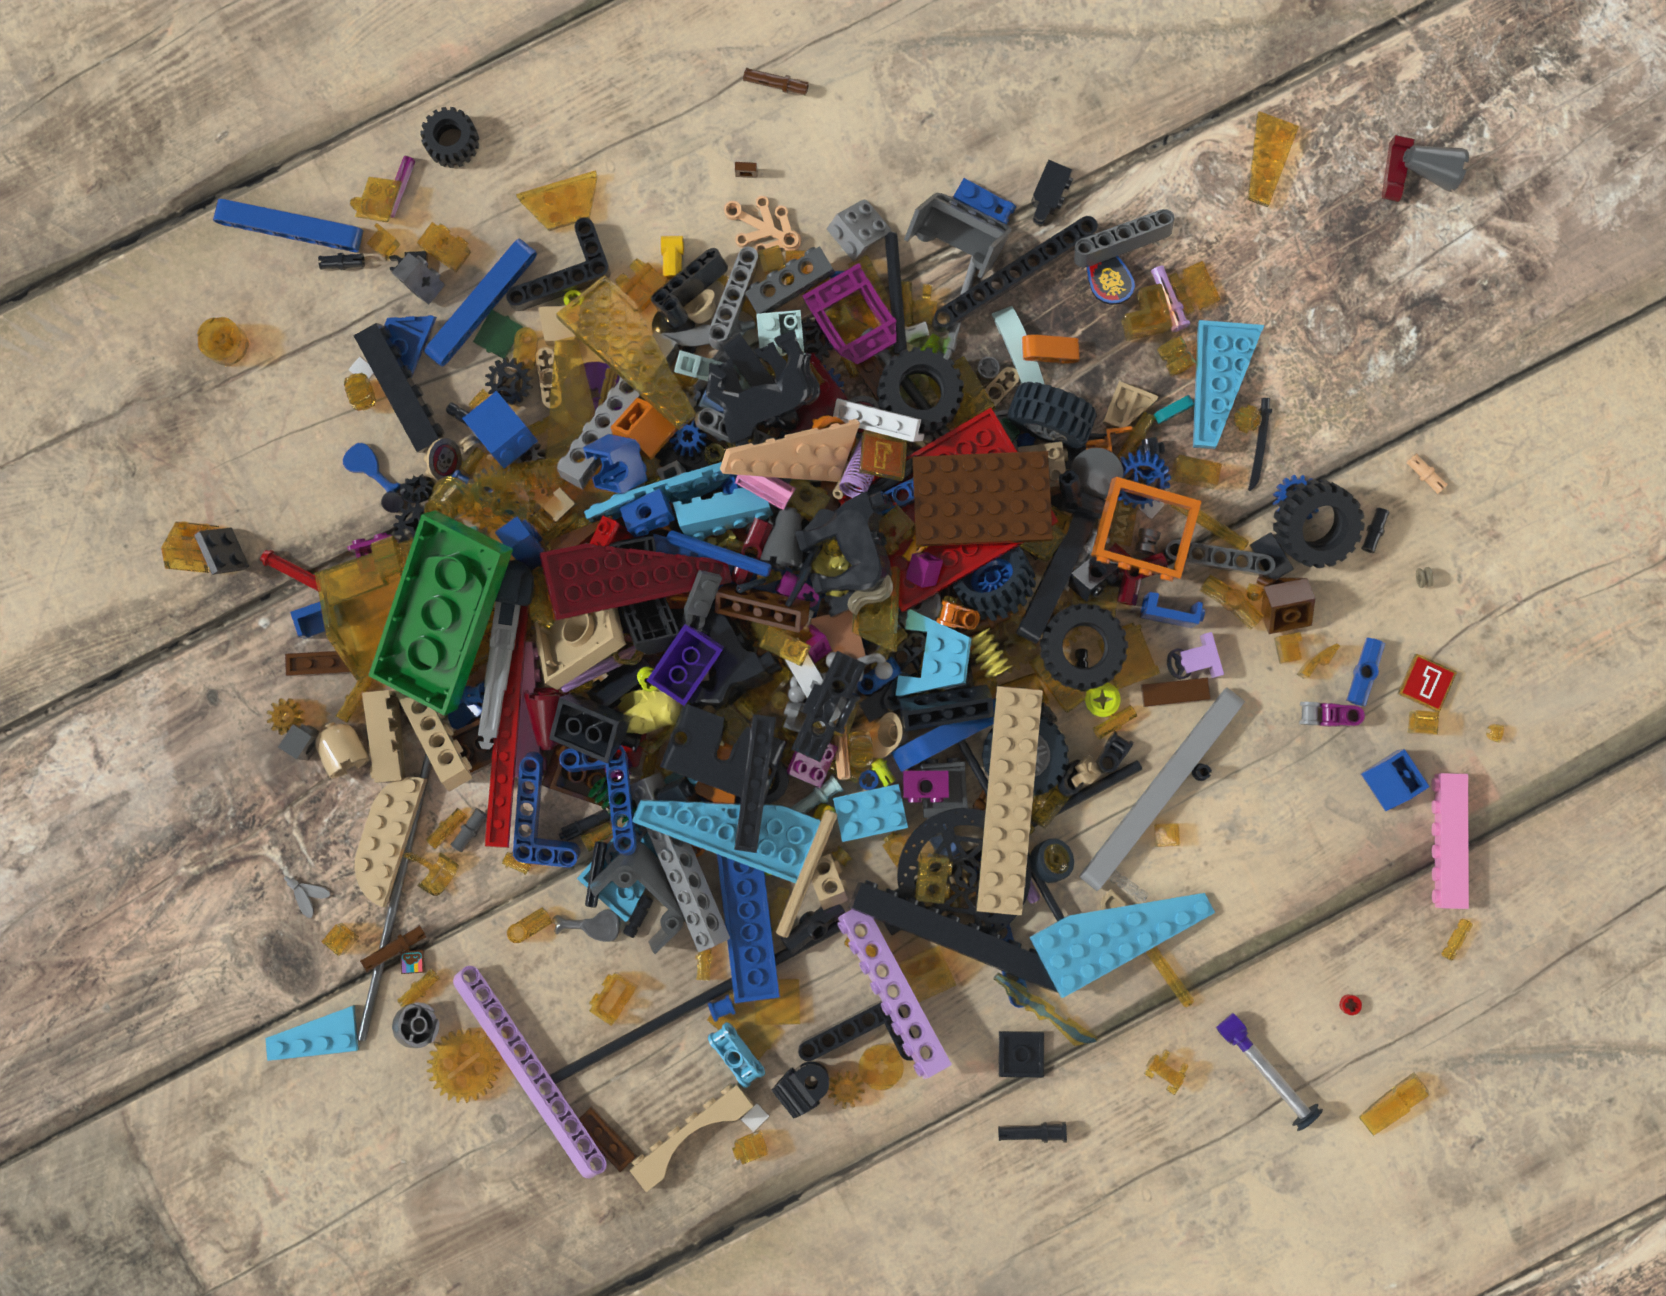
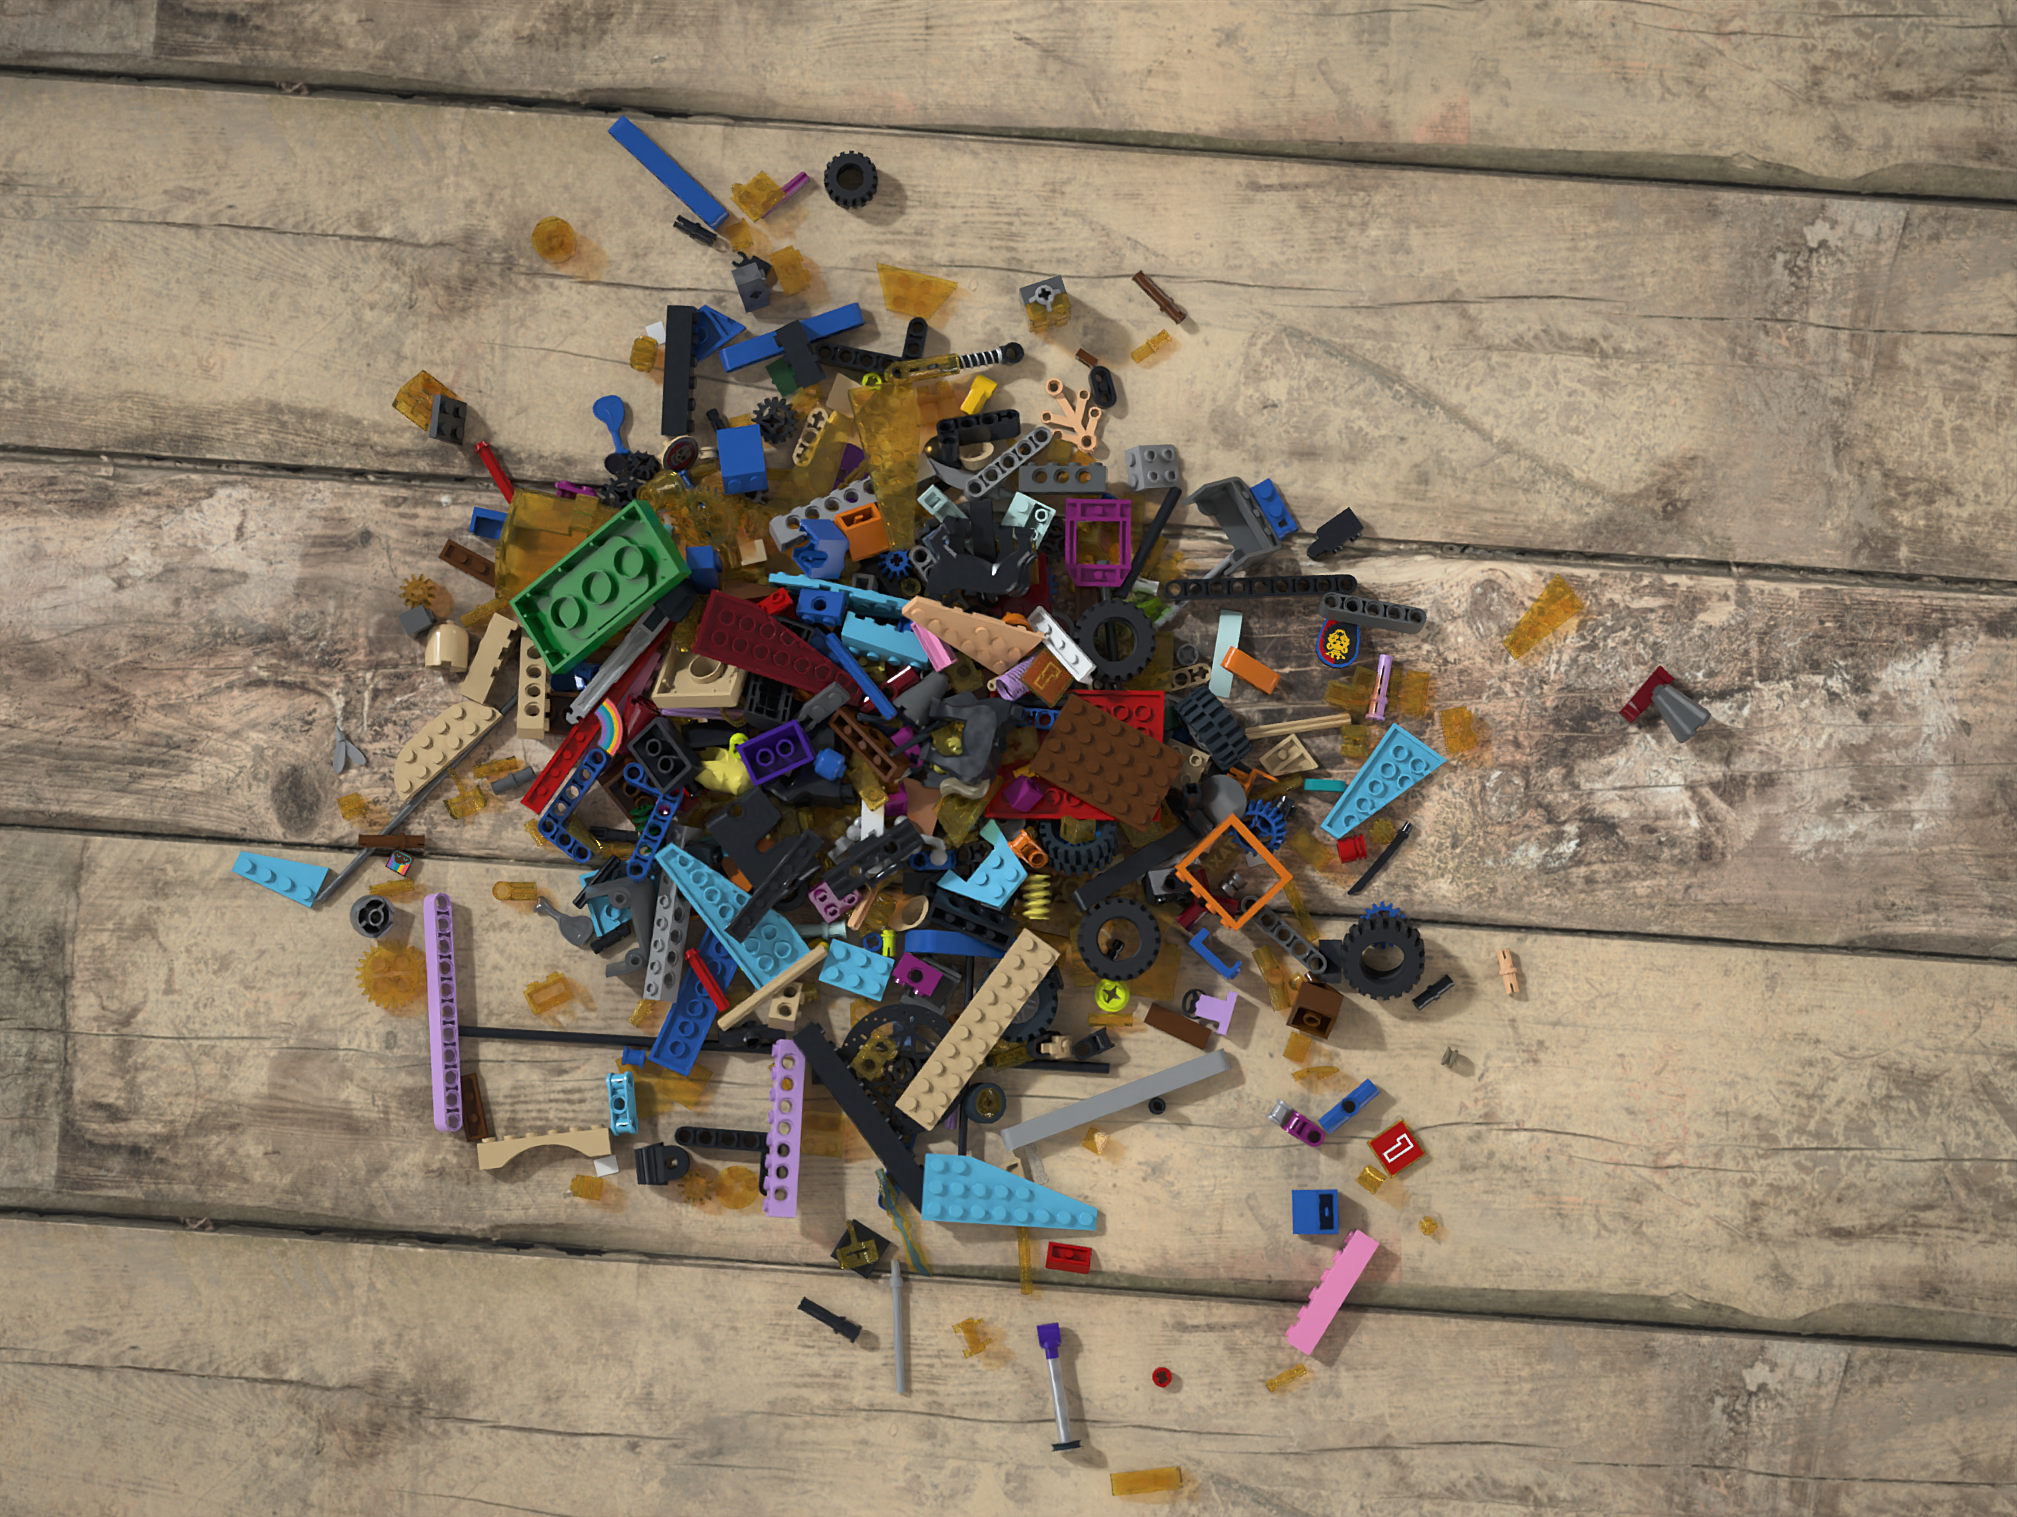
camera: 30 degrees right, 0 degrees up
(496, 310) = (799, 354): none -> black wedge
(526, 732) = (611, 727): none -> tile
(554, 839) = (580, 832): none -> clear yellow tile
(632, 240) = (951, 364): none -> piece
(682, 140) = (1045, 304): none -> piece
(739, 646) = (829, 764): none -> blue head
(745, 901) = (707, 979): none -> red axle
(776, 186) = (1102, 388): none -> black plate
(794, 127) = (1150, 346): none -> clear yellow axle
(990, 574) = (1077, 831): none -> clear yellow panel
(1021, 1070) = (852, 1261): none -> clear yellow helmet
(1071, 1065) = (896, 1283): none -> light grey bar
(1122, 370) = (1298, 726): none -> tan axle
(1206, 950) = (1068, 1258): none -> red slope
(1230, 449) = (1351, 848): none -> red piece
(1245, 292) = (1449, 720): none -> clear yellow brick

